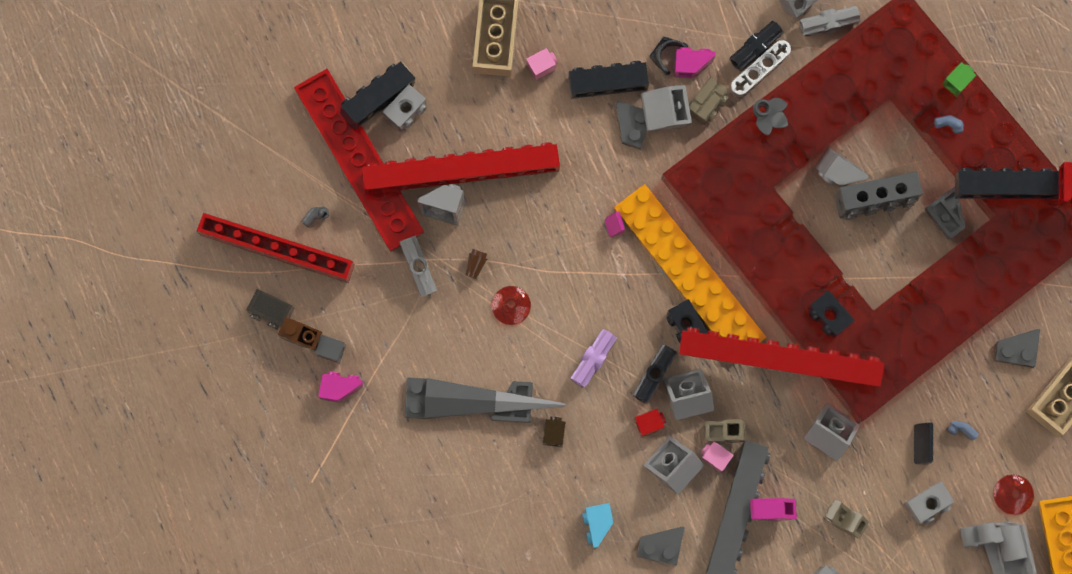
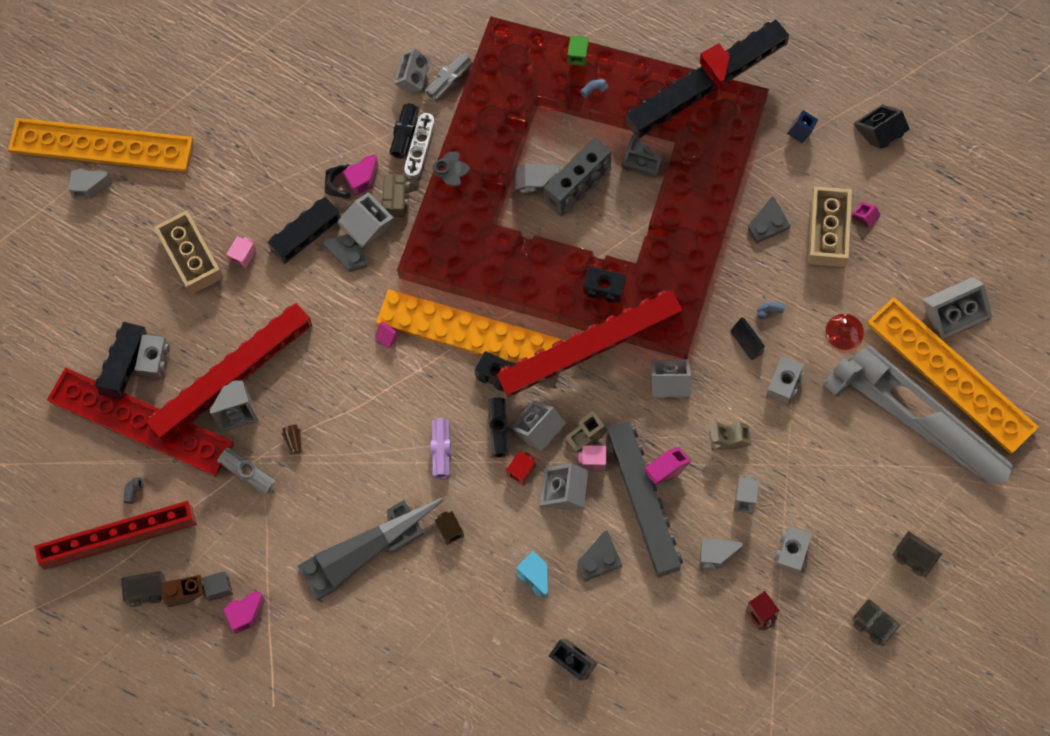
camera: 30 degrees left, 10 degrees down
(512, 315) = (348, 461): clear red dish -> none

